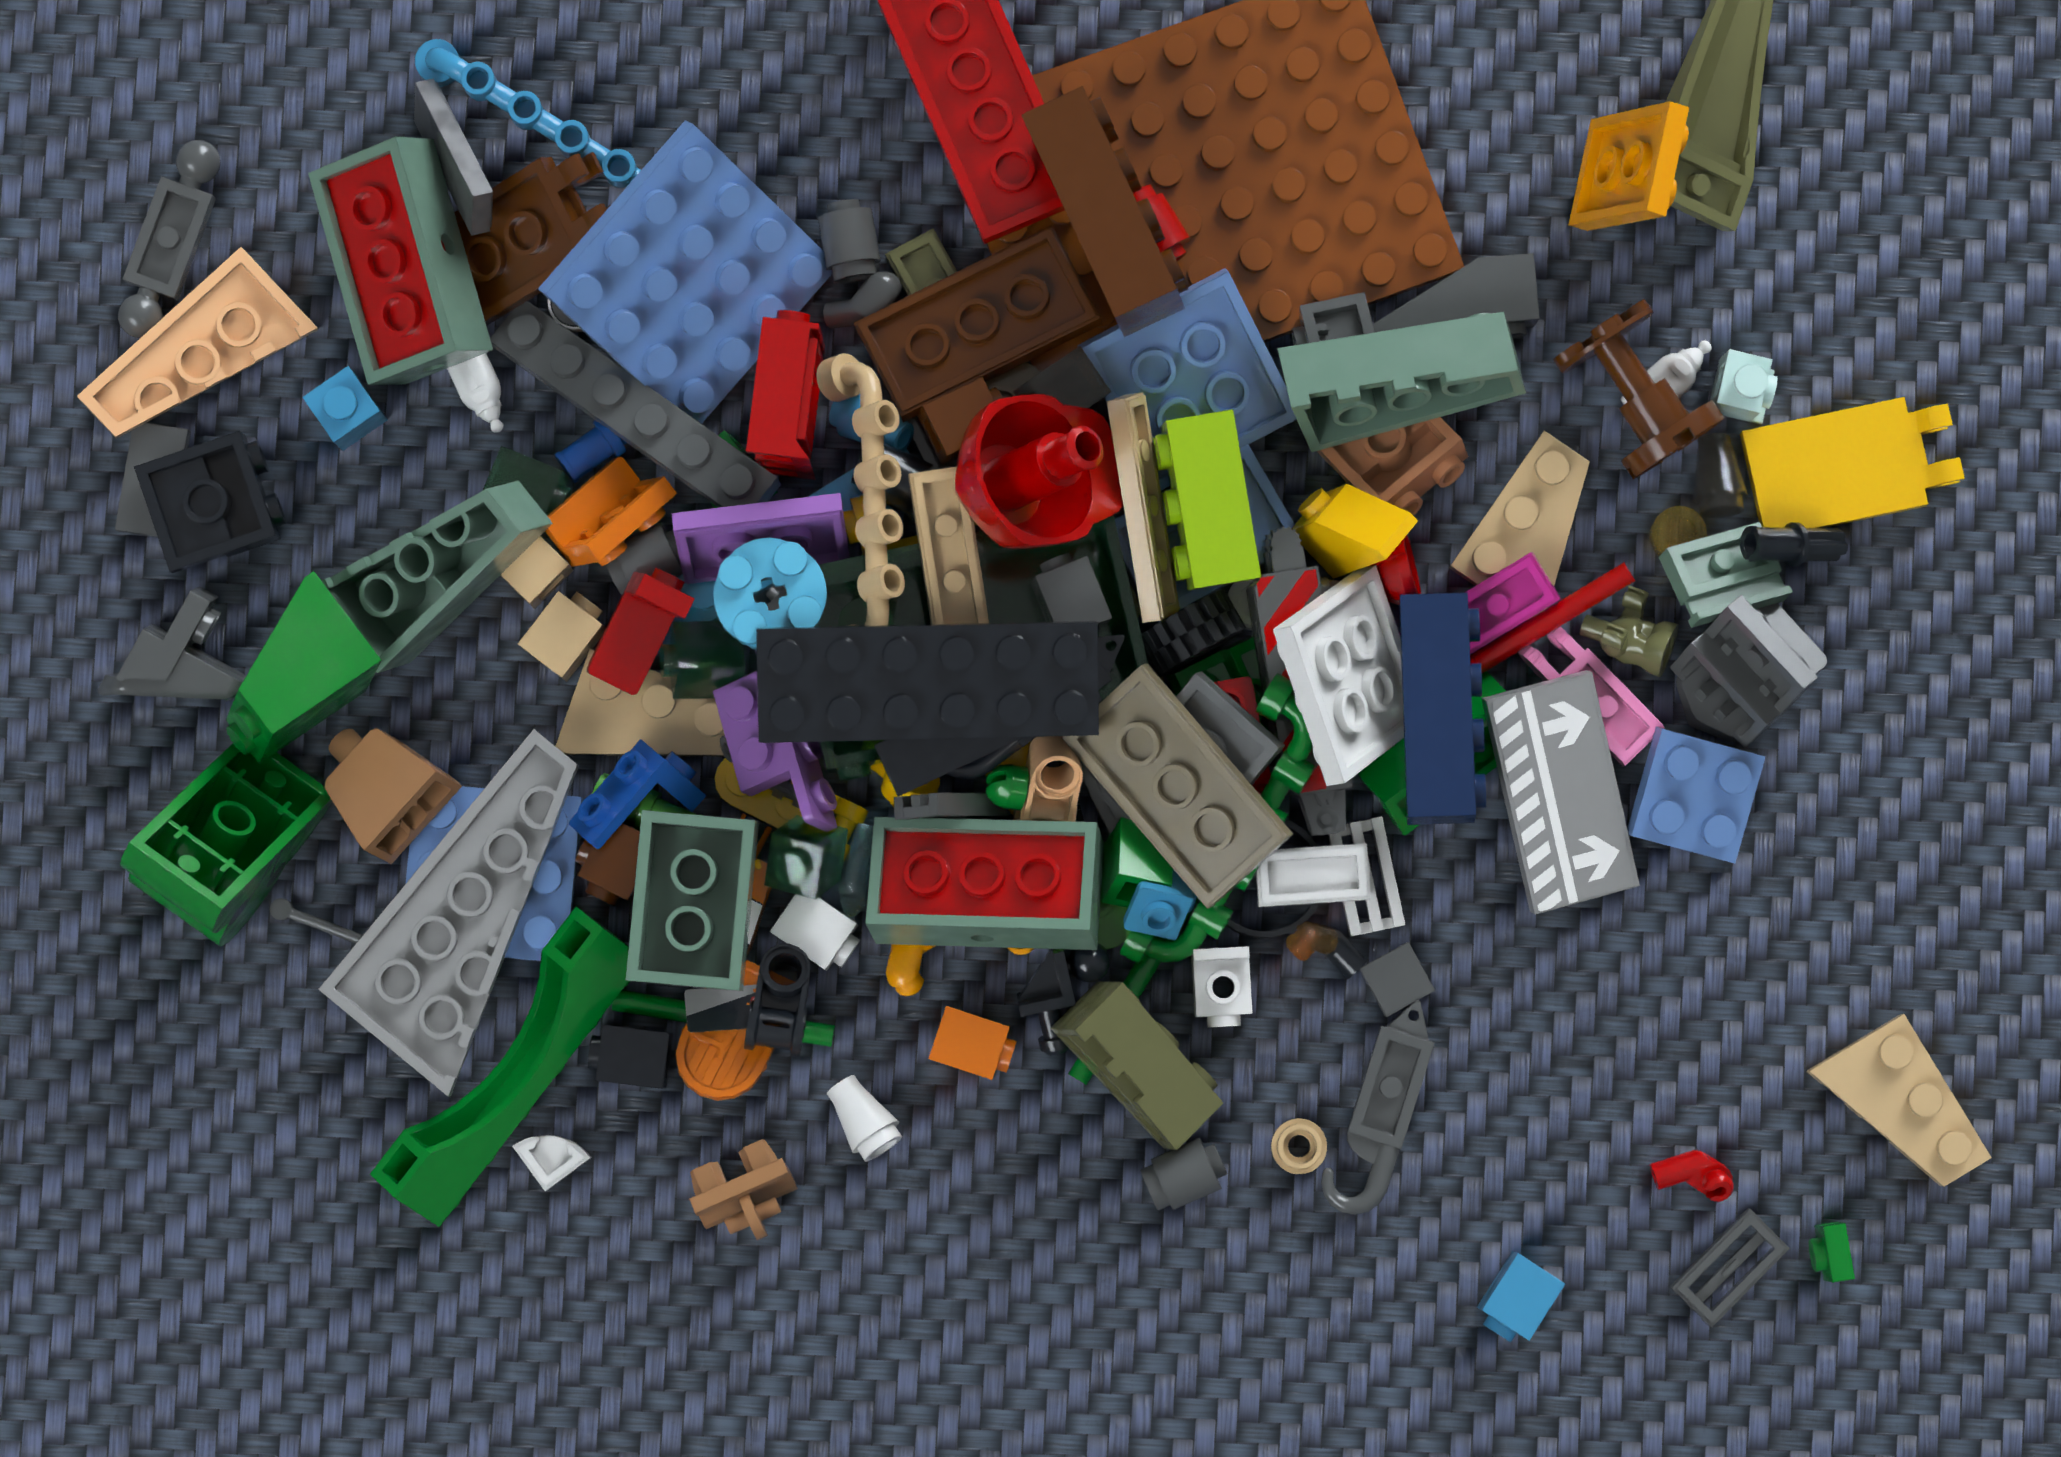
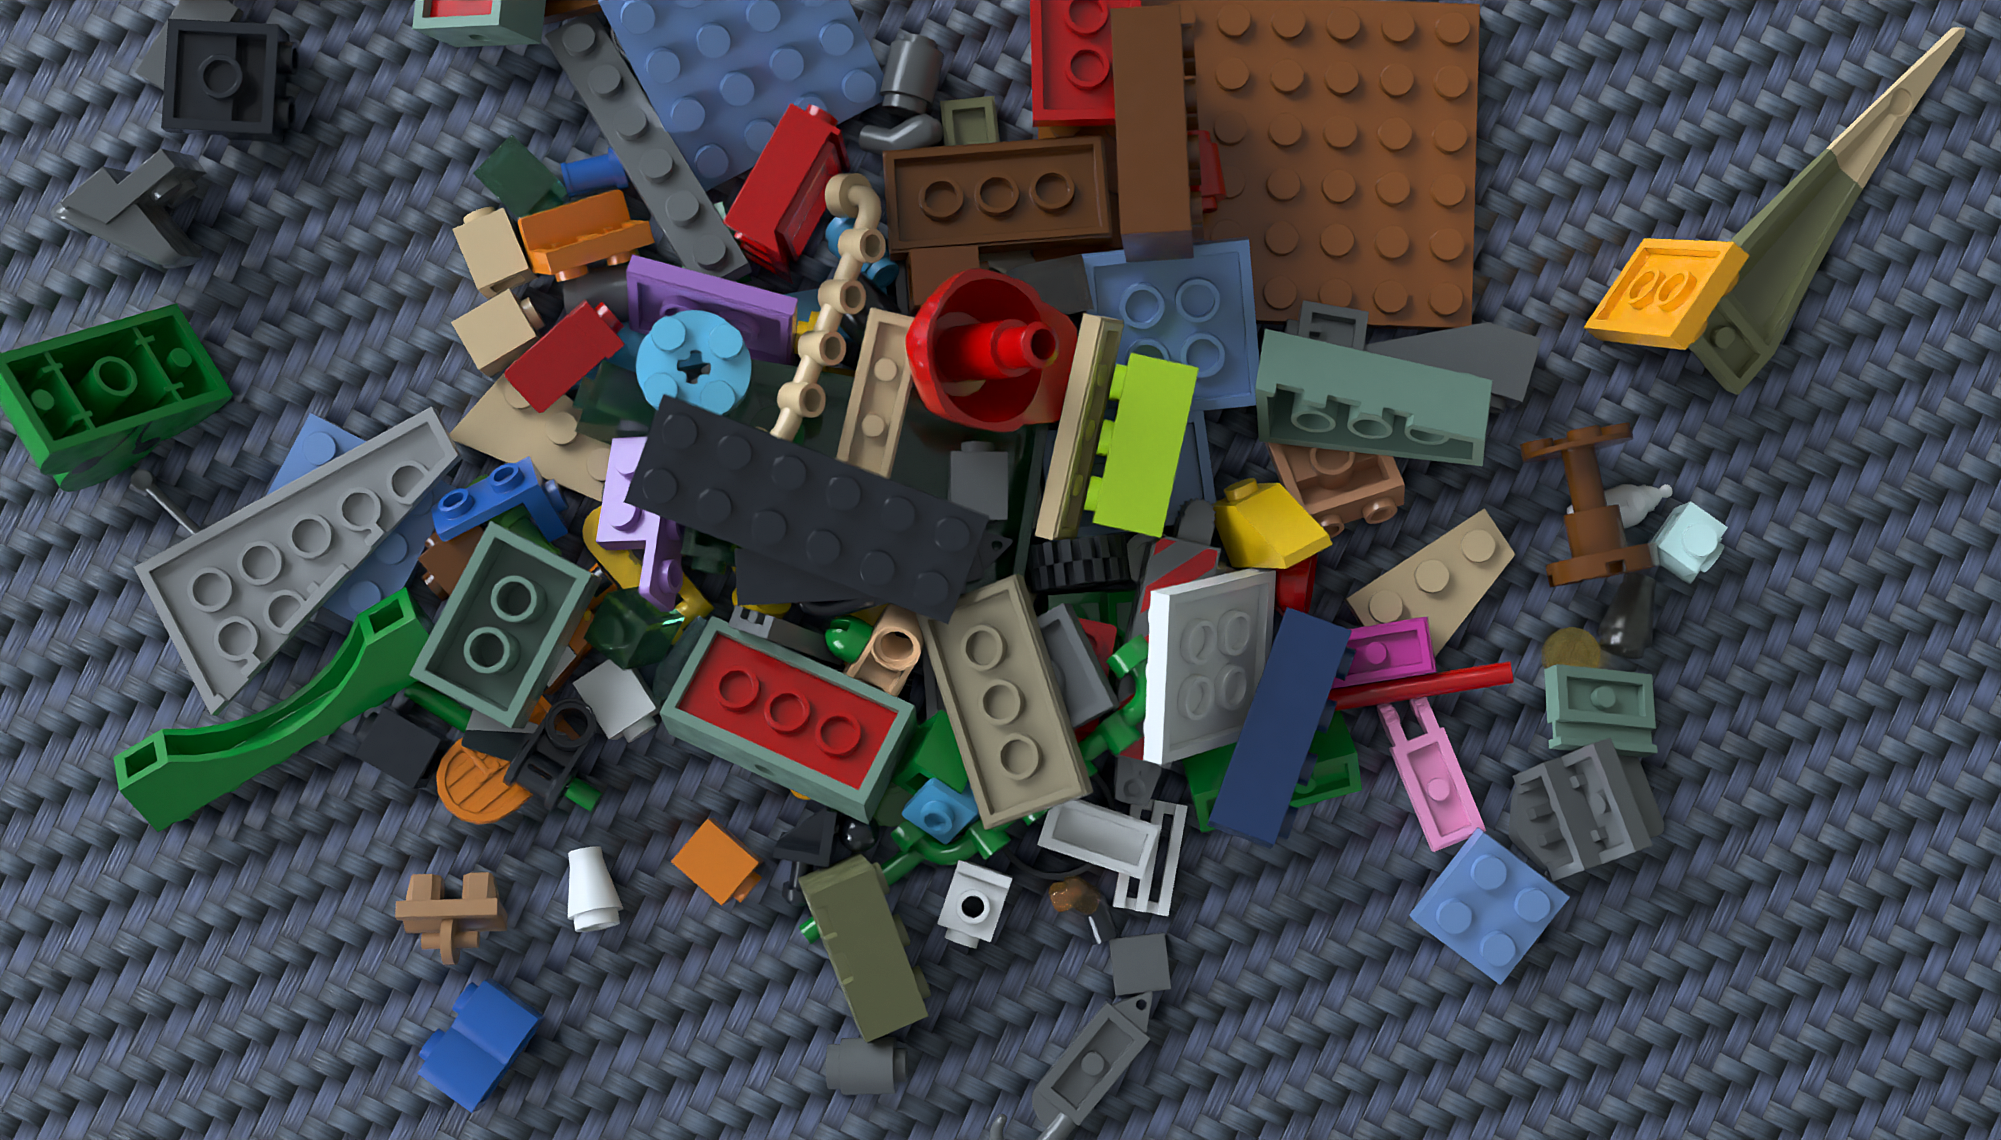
camera: 30 degrees right, 0 degrees up
(302, 674) = (235, 268): green slope -> none
(345, 408) = (386, 44): dark azure brick -> none
(385, 790) = (275, 409): medium nougat torso -> none
(432, 574) = (390, 227): sand green wedge -> none
(479, 389) = (519, 76): white piece -> none
(550, 1158) = (291, 809): white tile -> none
(818, 1300) = (480, 1043): none -> blue brick
(904, 968) = (686, 768): light orange arm -> none
(1311, 1159) = (985, 1100): tan plate -> none
(1560, 792) = (1363, 852): light grey tile -> none
(1633, 639) = (1488, 735): olive piece -> none
(1792, 544) = (1675, 708): black axle -> none
(1846, 464) = (1753, 654): yellow tile -> none

